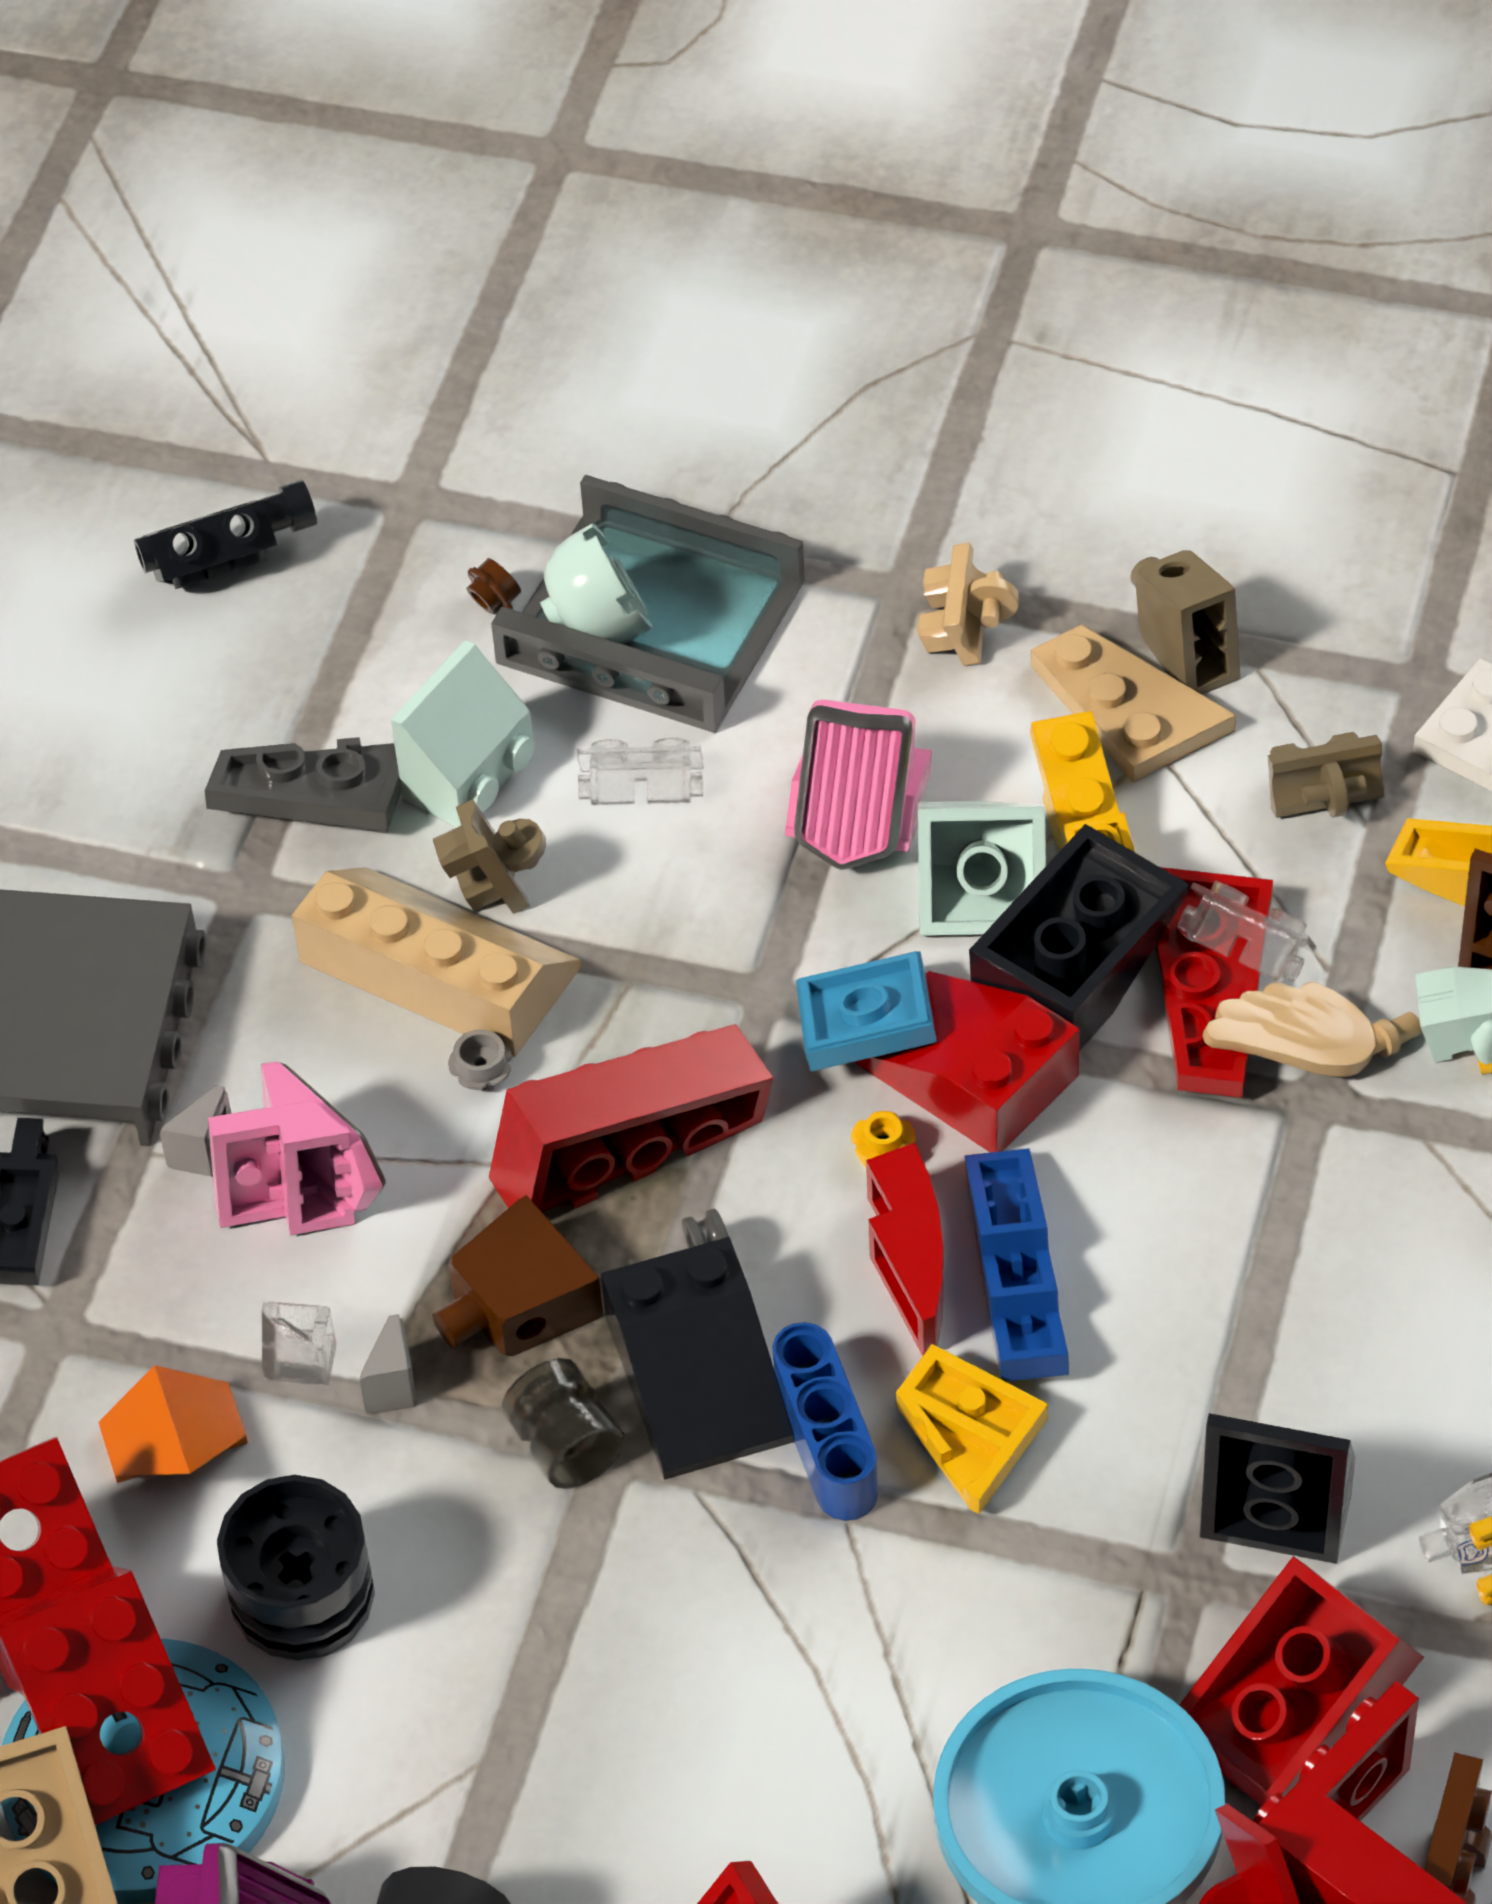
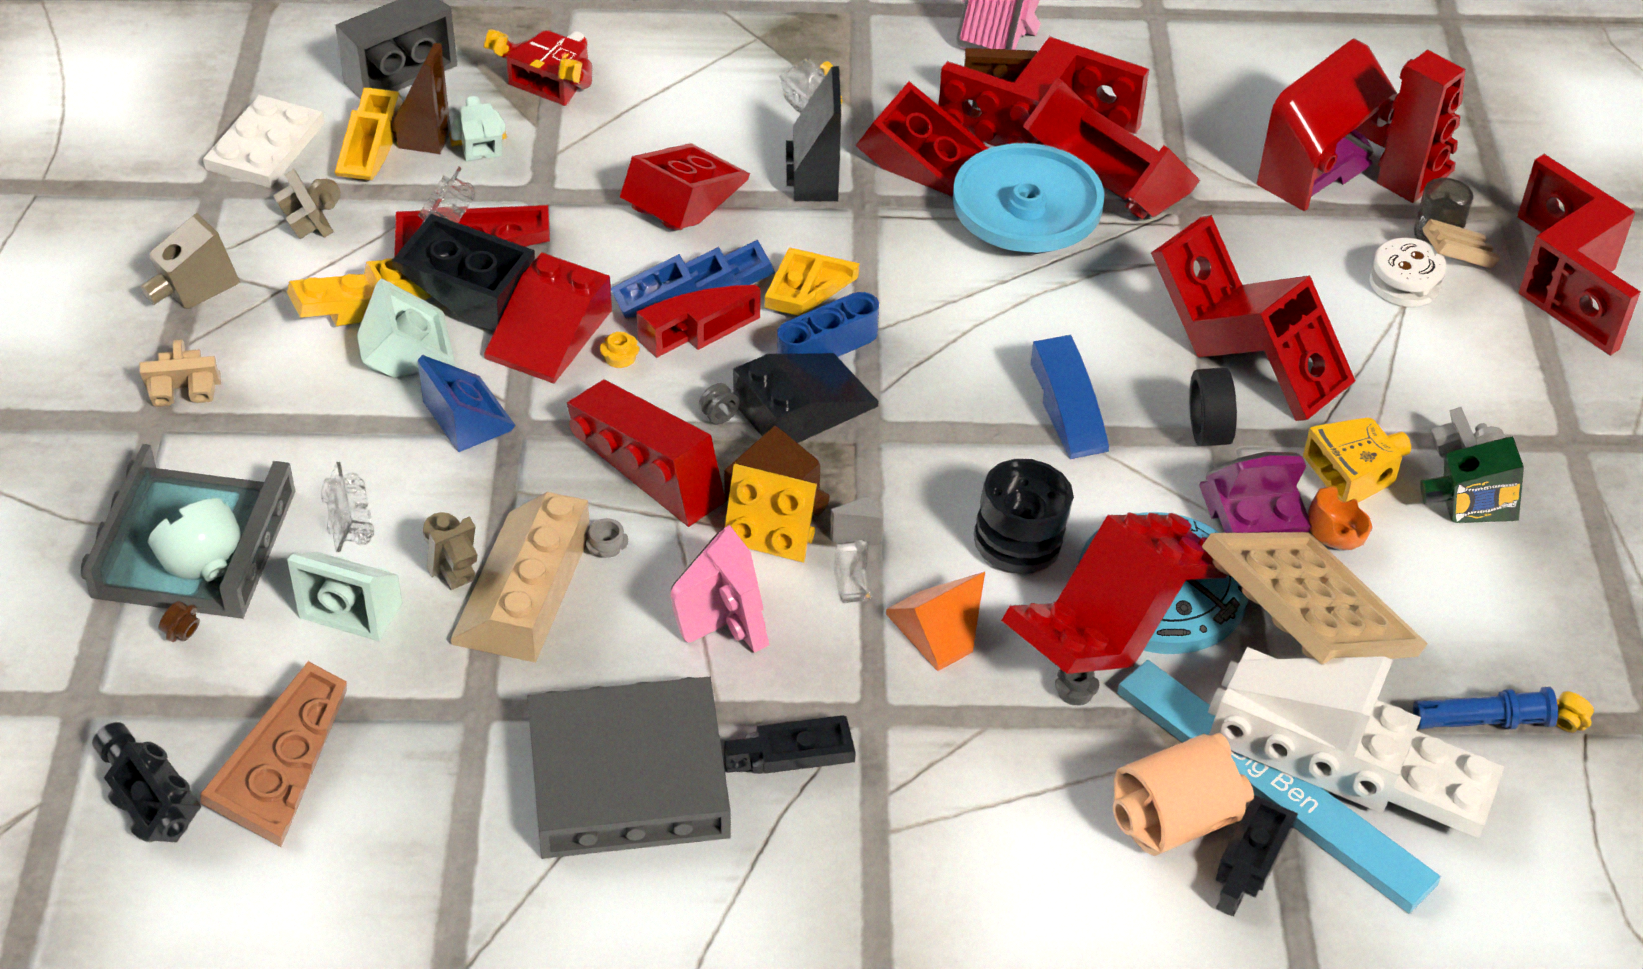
camera: 110 degrees left, 5 degrees down
(187, 1137) = (705, 657): light grey slope -> none
(227, 668) = (276, 760): none -> nougat wing
(328, 786) = (382, 676): dark grey wing -> none
(419, 1258) = (771, 512): none -> yellow hinge
(564, 1736) = (1069, 396): none -> blue slope
(567, 1426) = (872, 433): clear smoke wheel -> none
(804, 913) = (461, 404): none -> blue slope
(857, 783) = (352, 393): bright pink piece -> none
(865, 1011) = (533, 360): dark azure tile -> none
(1137, 709) = (245, 303): tan wing -> none
(1270, 1290) = (680, 184): none -> red slope
(1307, 1029) = (502, 186): tan animal -> none

